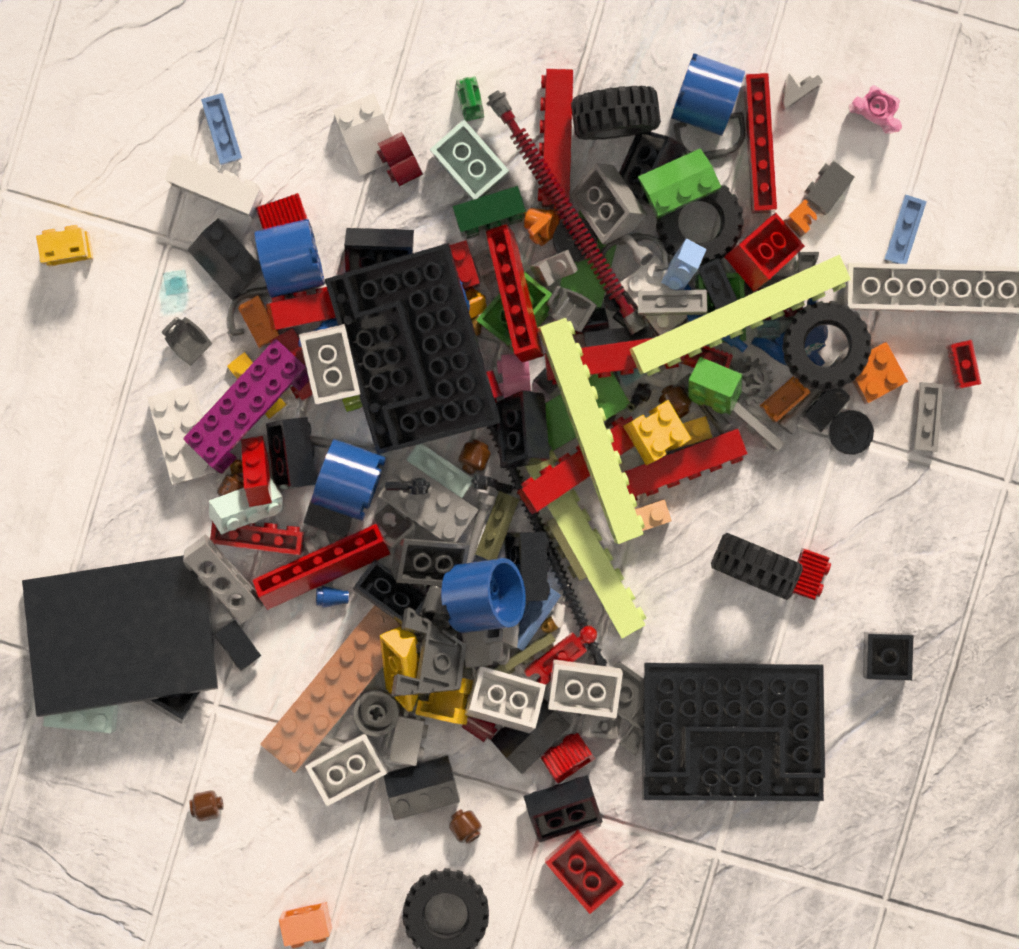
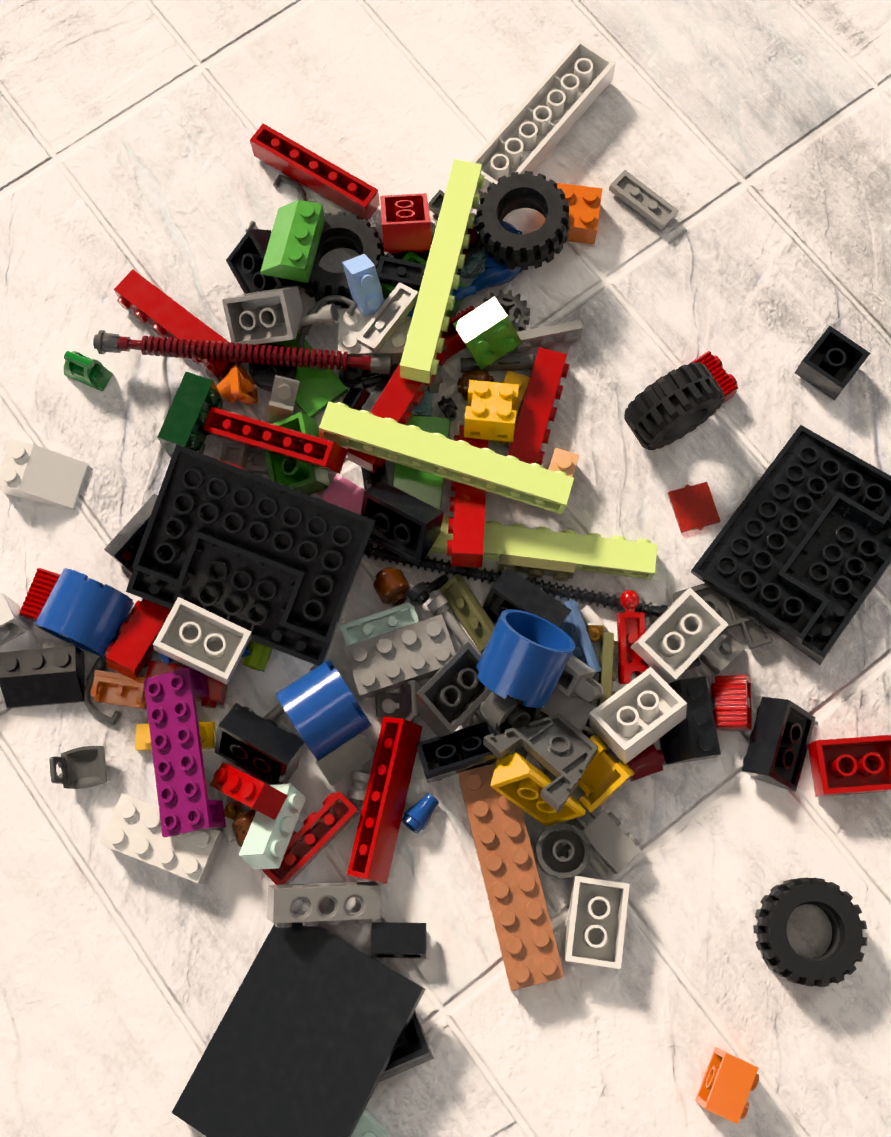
camera: 50 degrees left, 15 degrees down
(176, 282) = (24, 739): clear light blue plate -> none
(206, 805) = (533, 1097): reddish brown head -> none
(399, 159) = (85, 461): dark red brick -> none
(417, 487) = (378, 648): black plate -> none
(421, 787) = (666, 863): black slope -> none
(465, 826) = (733, 848): reddish brown head -> none
(469, 161) = (133, 404): light aqua brick -> none
(570, 306) = (316, 407): dark grey piece -> none
(615, 112) = (193, 252): black tyre -> none
(699, 630) = (693, 507): none -> clear red piece
(708, 94) = (241, 177): blue brick -> none
(784, 399) = (542, 298): orange hinge -> none
(790, 422) = (566, 309): light grey piece -> none
(794, 93) = (295, 122): light grey slope -> none
(799, 219) = (401, 180): orange hinge -> none
(826, 408) = (574, 271): black hinge -> none
(829, 187) = (394, 149): dark grey brick -> none
(851, 432) = (610, 268): black tile -> none
(884, 114) = (363, 71): bright pink hair -> none
(905, 230) = (472, 115): medium blue plate -> none
(963, 364) = (620, 142): red brick -> none

